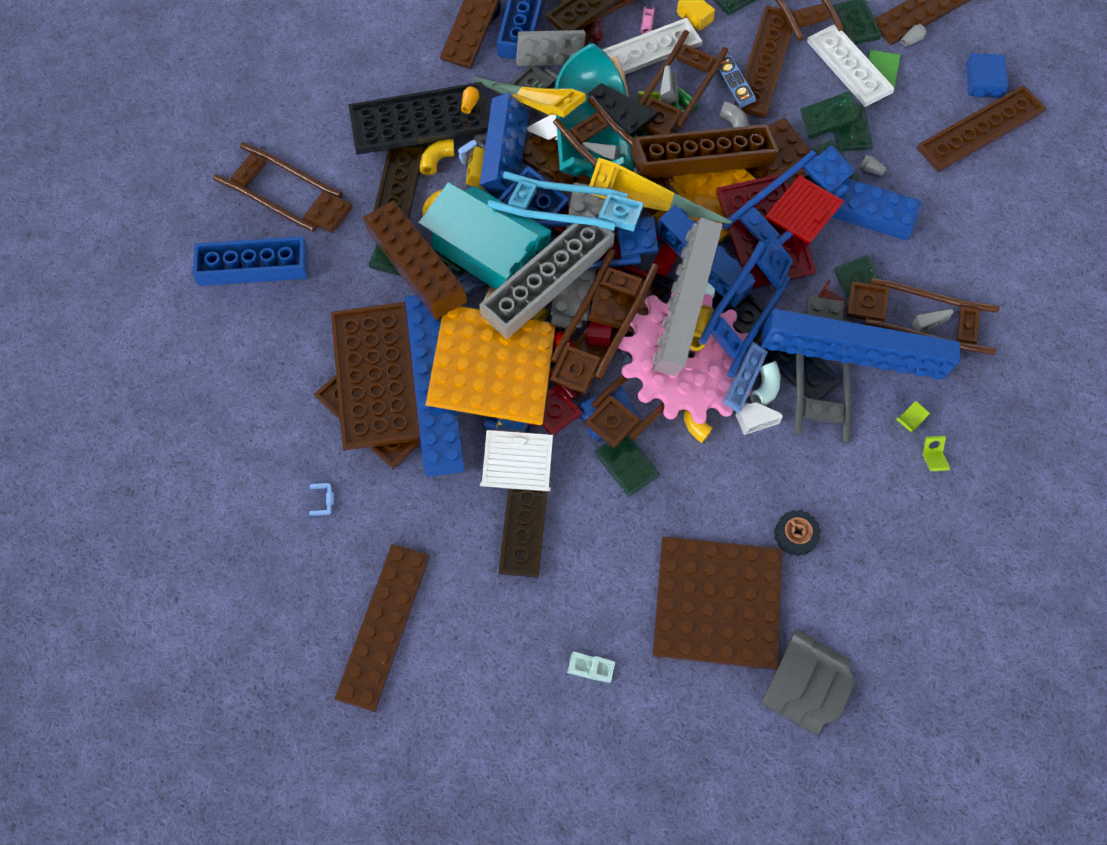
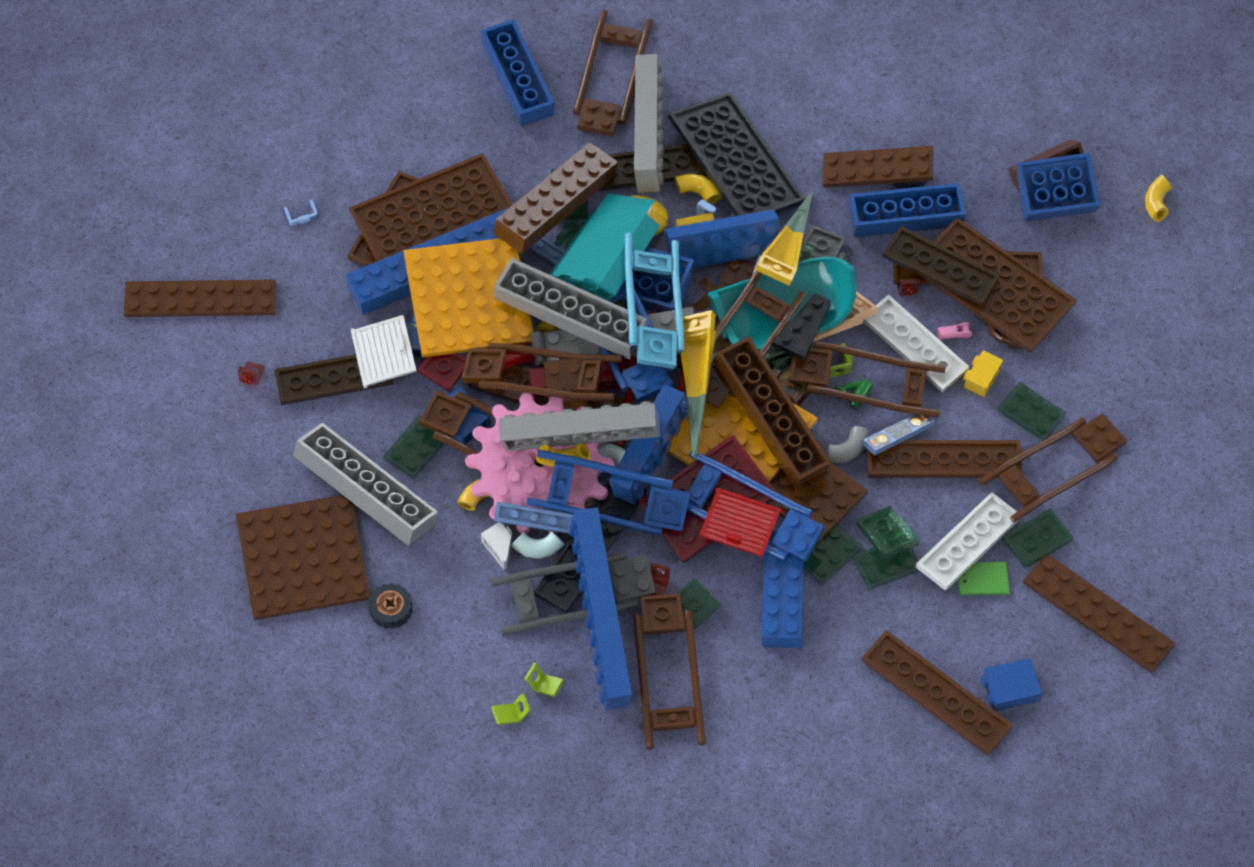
camera: 70 degrees right, 5 degrees down
(360, 167) = (648, 122): none -> light grey brick
(469, 99) = (767, 191): light orange cone -> none
(498, 601) = (248, 375): none -> clear red bracket
(548, 47) = (864, 245): light grey plate -> none
(591, 667) = (211, 468): light aqua slope -> none
(609, 151) = (748, 323): light grey slope -> none
(661, 518) = (365, 483): none -> light grey brick
(669, 87) = (858, 376): light grey slope -> none
(809, 684) = (249, 644): dark grey slope -> none
(872, 165) = (842, 588): light grey cone -> none
(914, 35) = (1041, 600): light grey cone -> none
(930, 320) = (660, 675): light grey slope -> none

